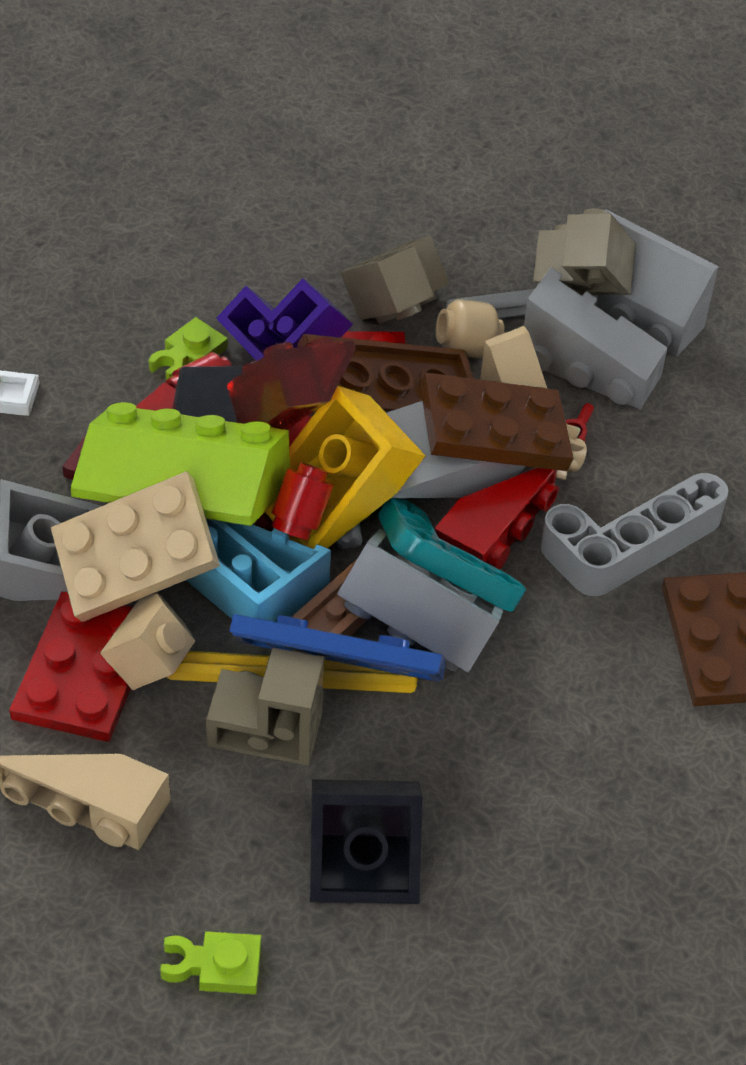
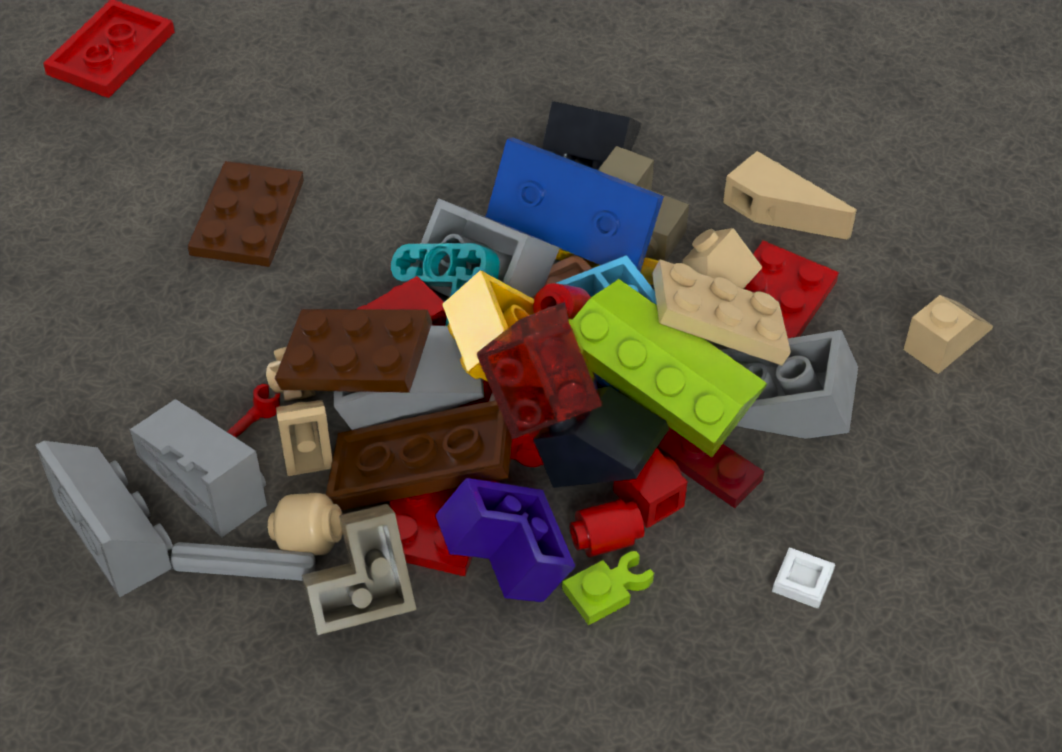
camera: 160 degrees left, 0 degrees up
(224, 962) = (712, 100): lime plate -> none
(589, 253) = (154, 495): dark tan brick -> none
(608, 556) = (263, 287): light grey beam -> none

